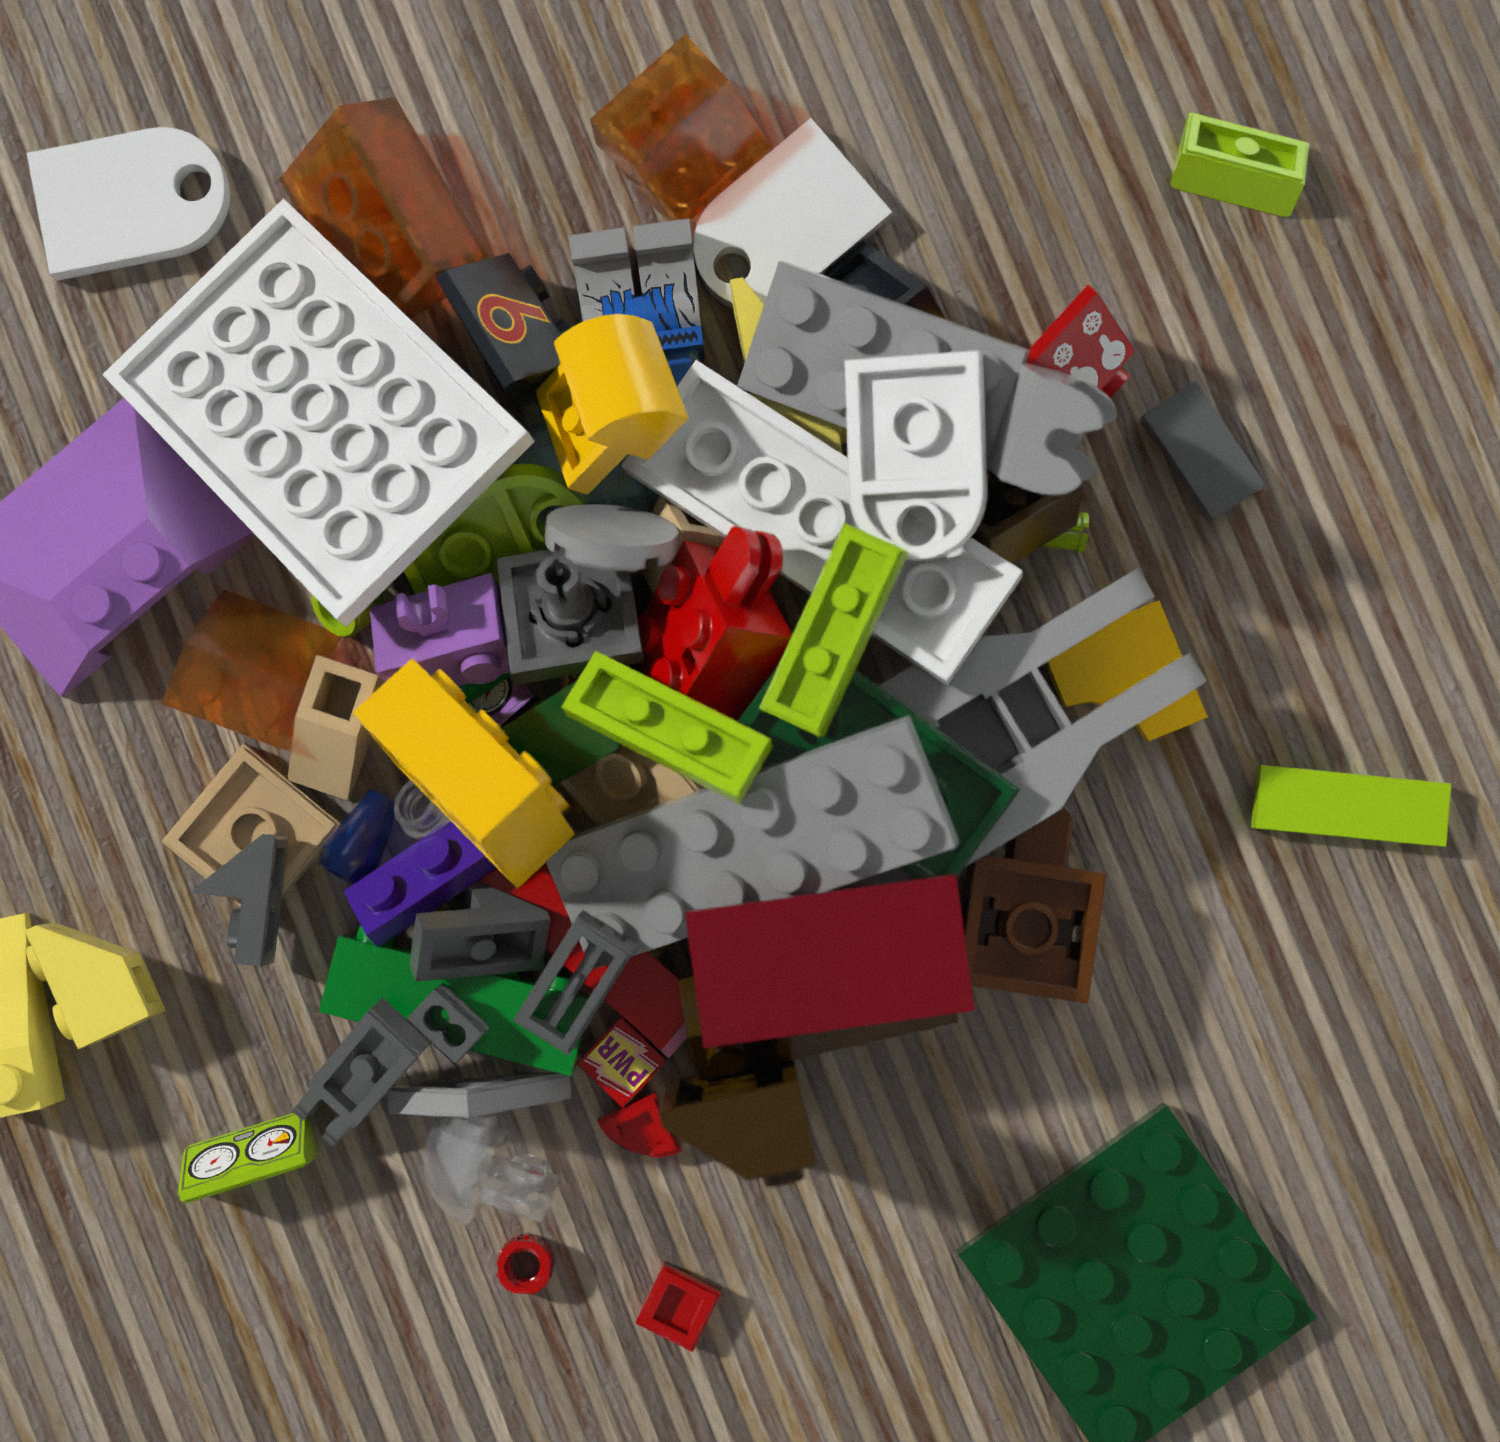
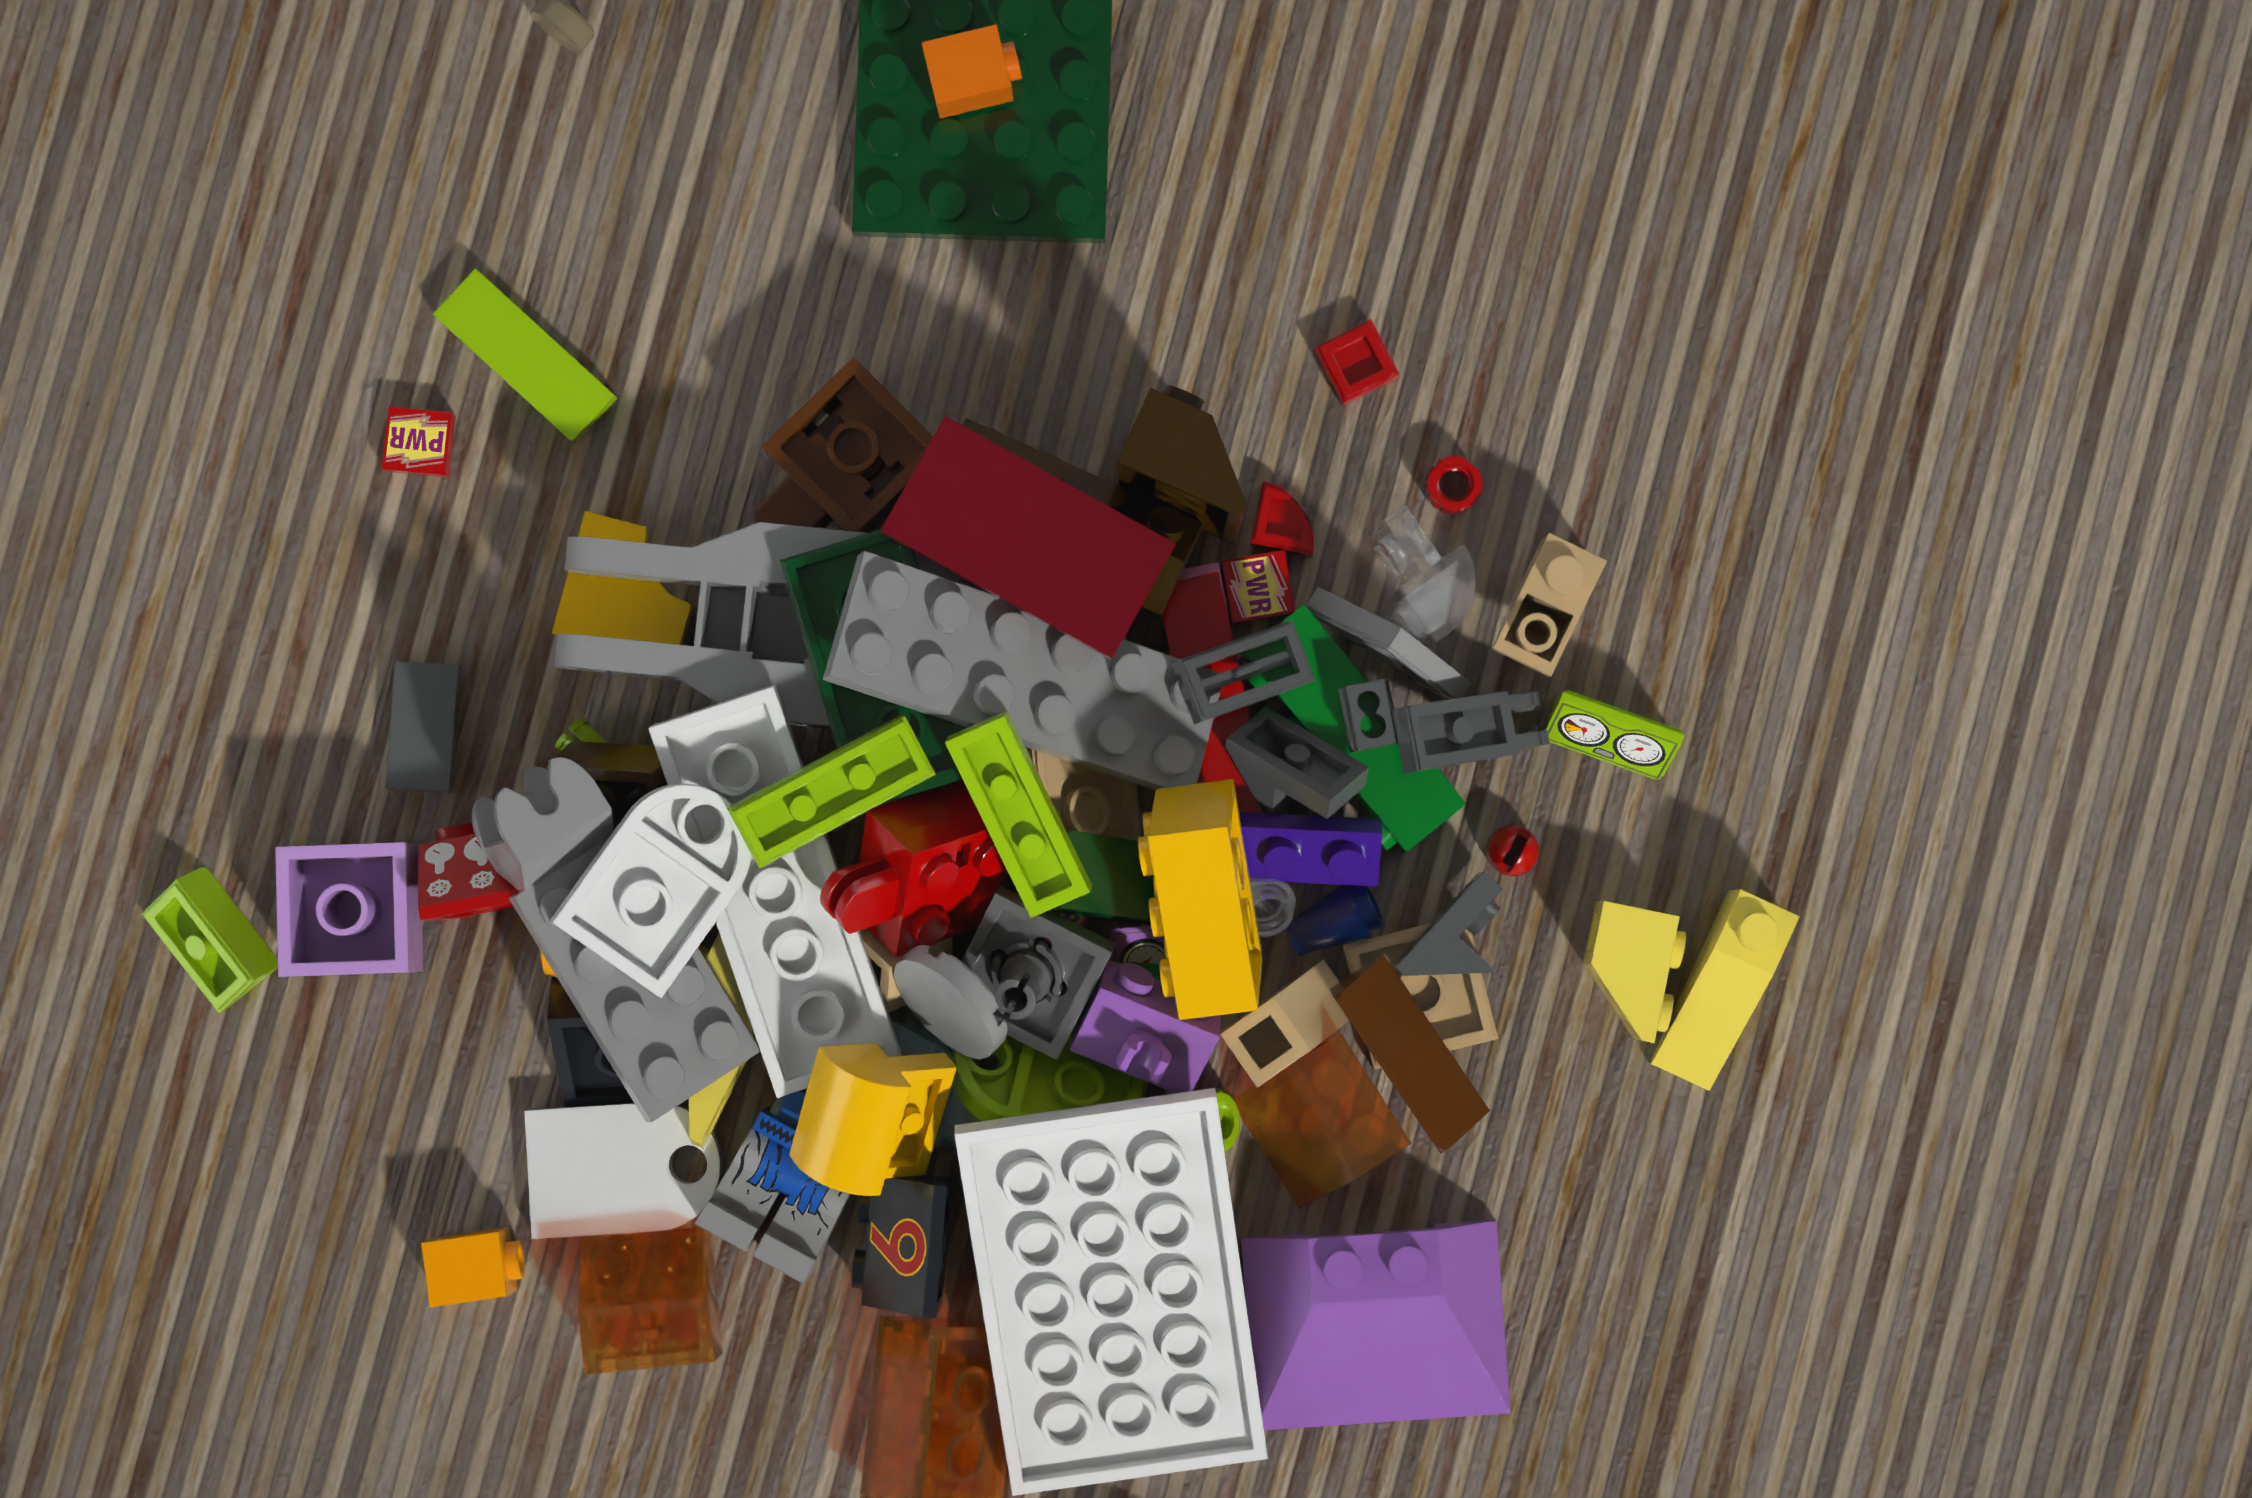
camera: 140 degrees left, 0 degrees up
(220, 777) = (1410, 1052): none -> reddish brown slope
(273, 1001) = (1500, 844): none -> red hinge
(372, 1226) = (1548, 604): none -> tan slope
(840, 60) = (472, 1266): none -> light orange brick
(1152, 257) = (348, 909): none -> lavender brick
(1172, 1314) = (971, 70): none -> orange brick
(1382, 673) = (418, 442): none -> tile

